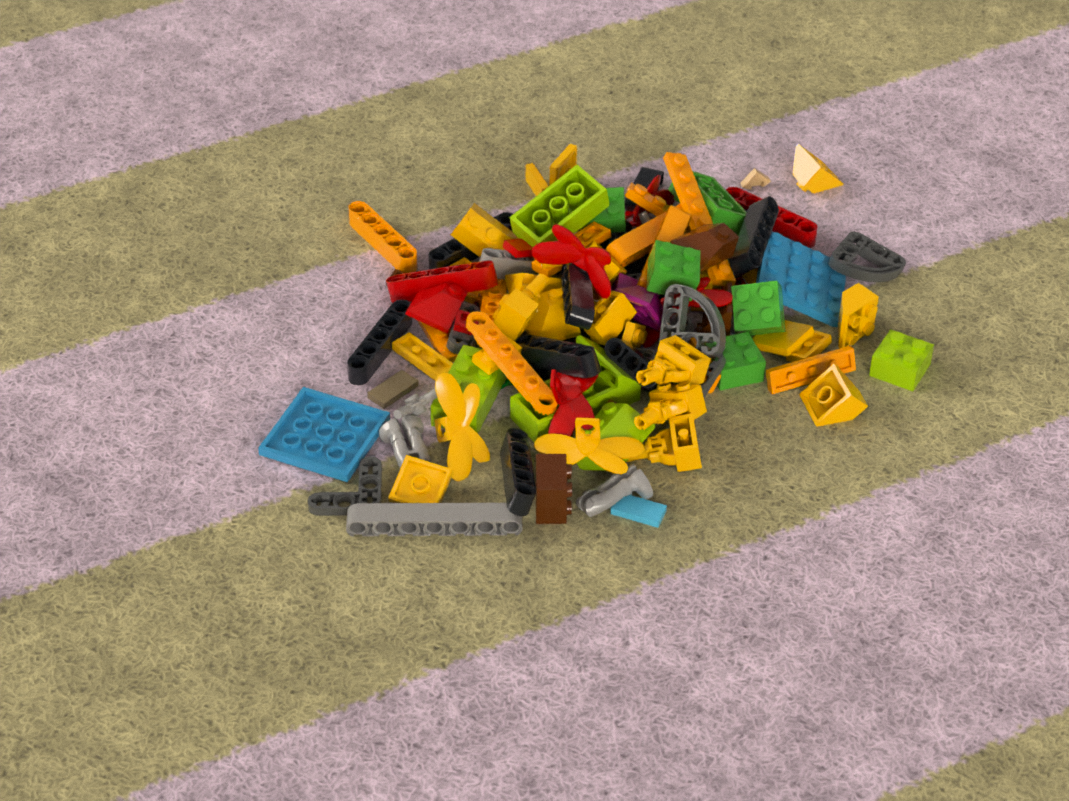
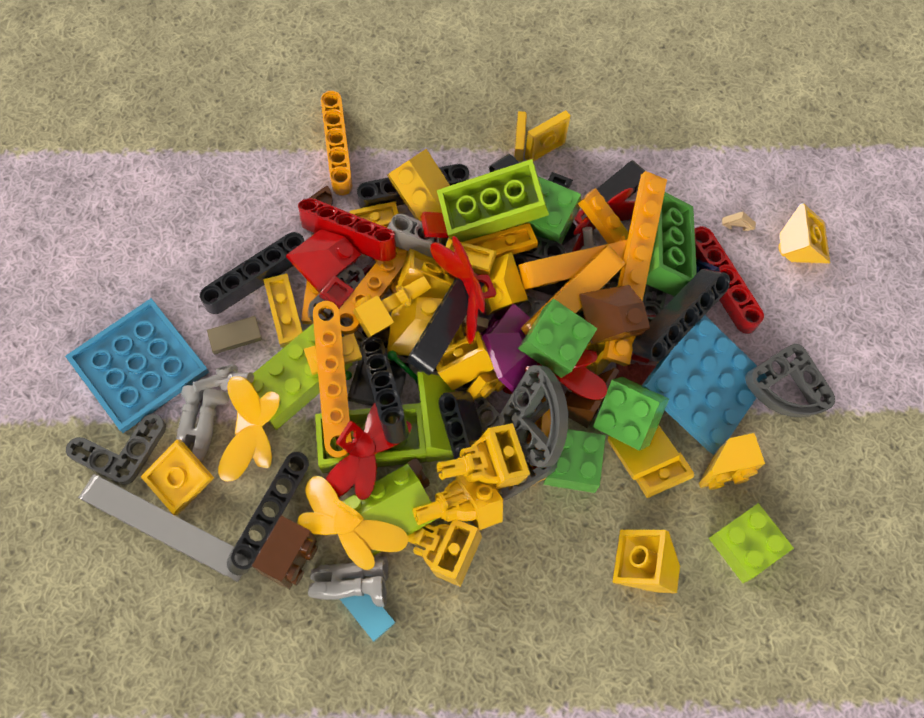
camera: 25 degrees right, 25 degrees up
(808, 369) = (648, 508): light orange plate -> none

